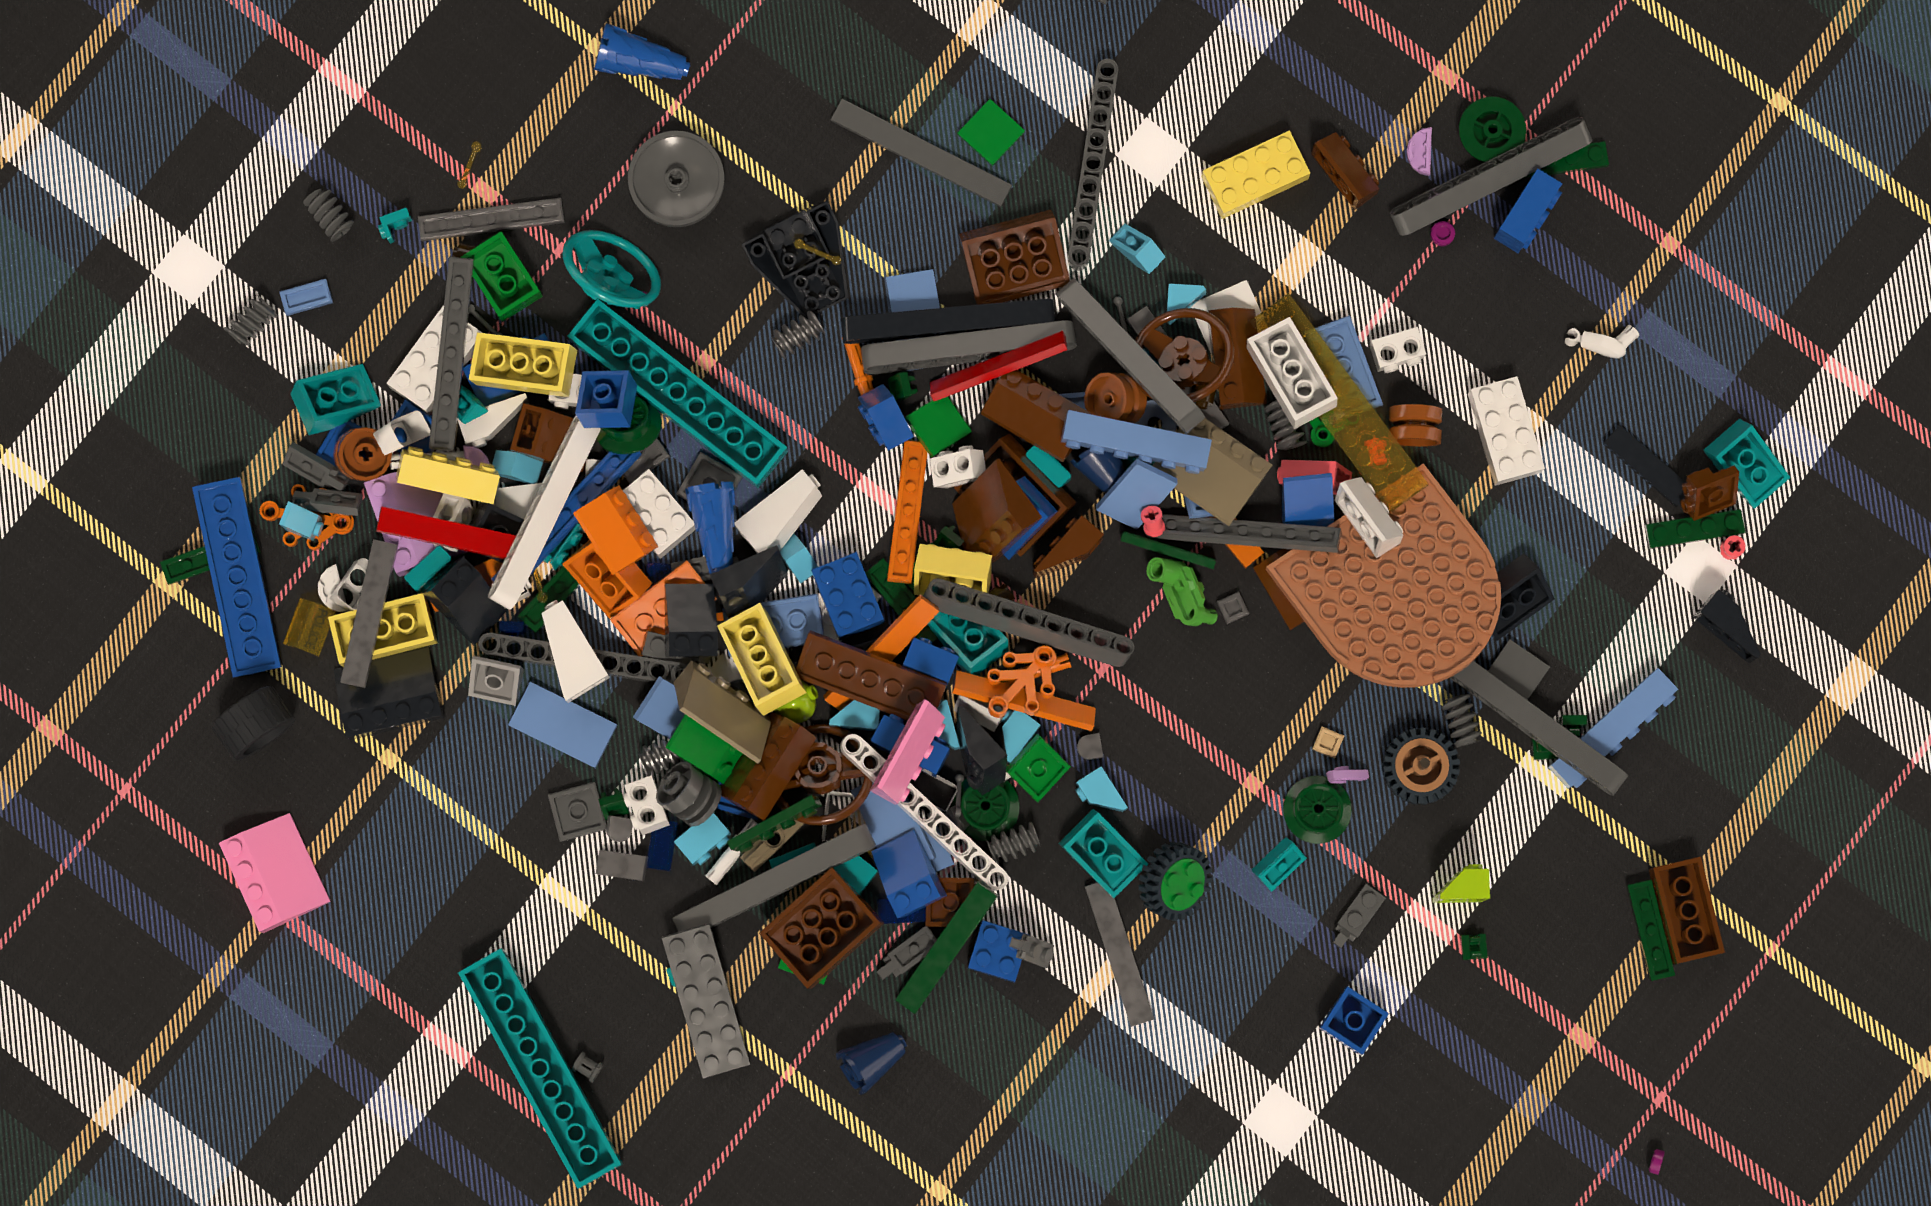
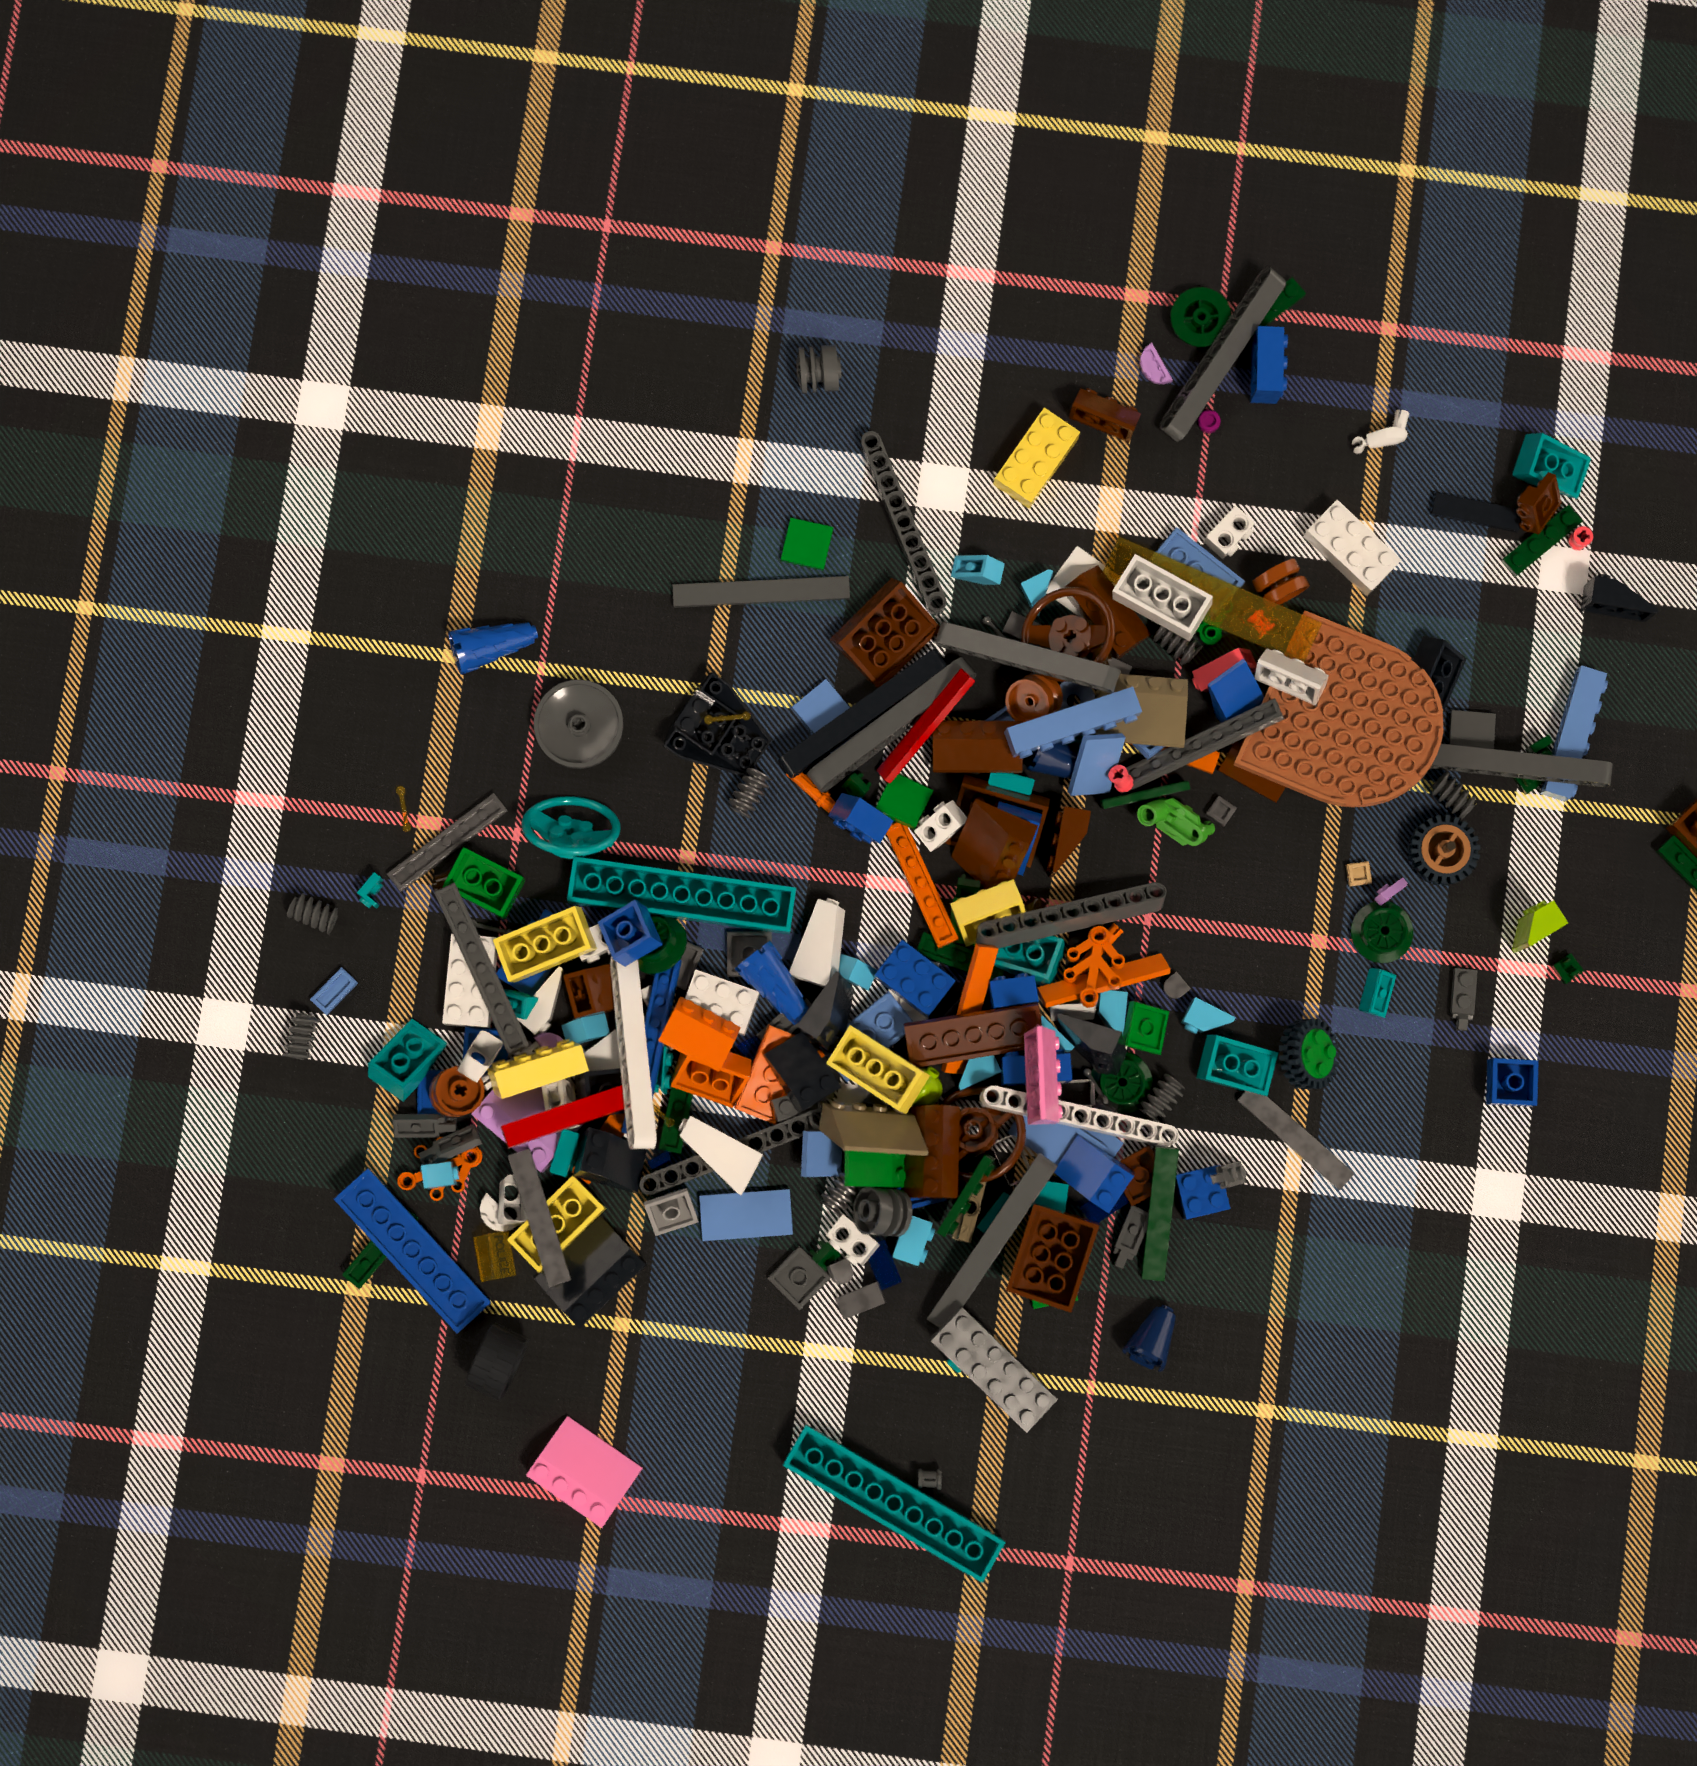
camera: 35 degrees left, 0 degrees up
(727, 859) = (942, 1243): white pin -> none

